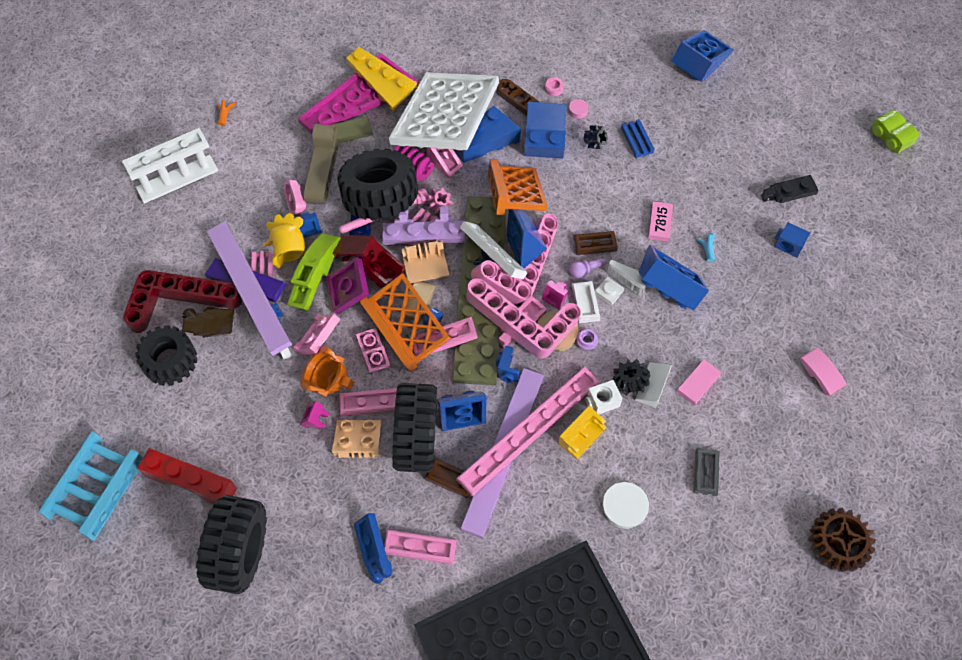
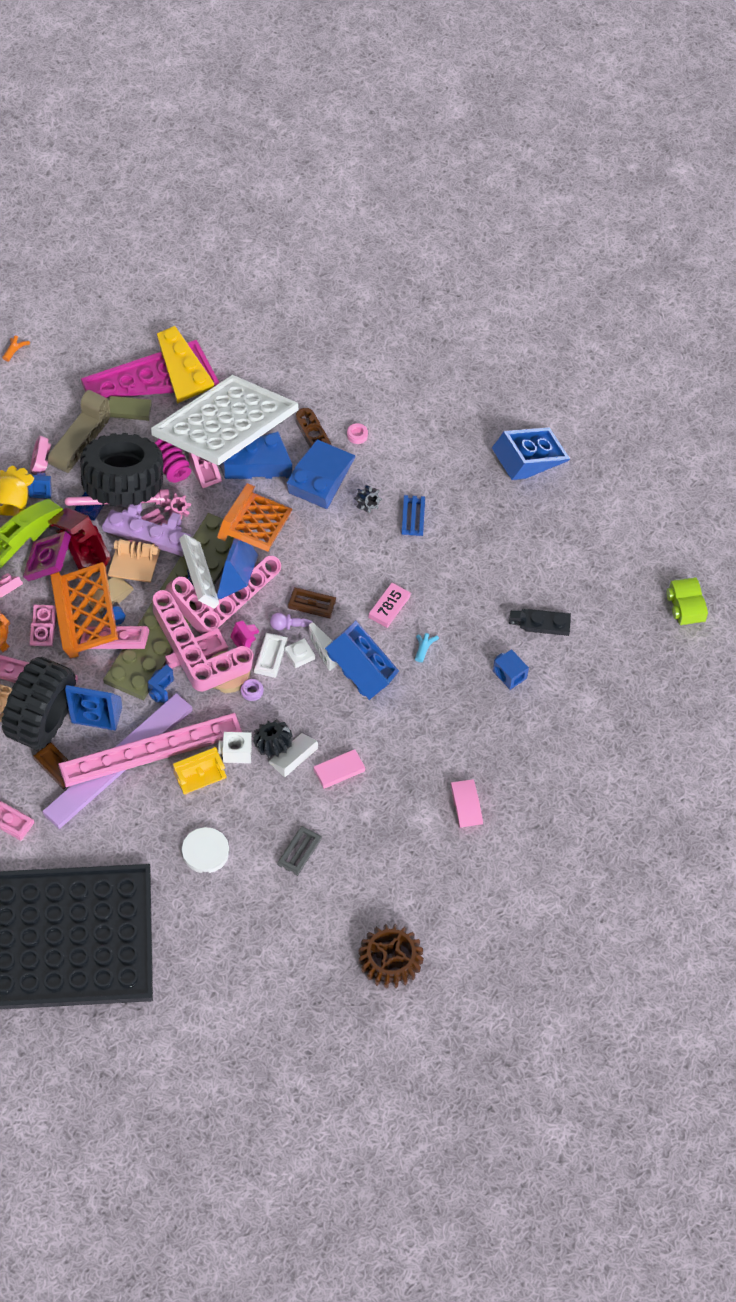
camera: 20 degrees right, 5 degrees down
(578, 108) = (369, 464): bright pink tile -> none

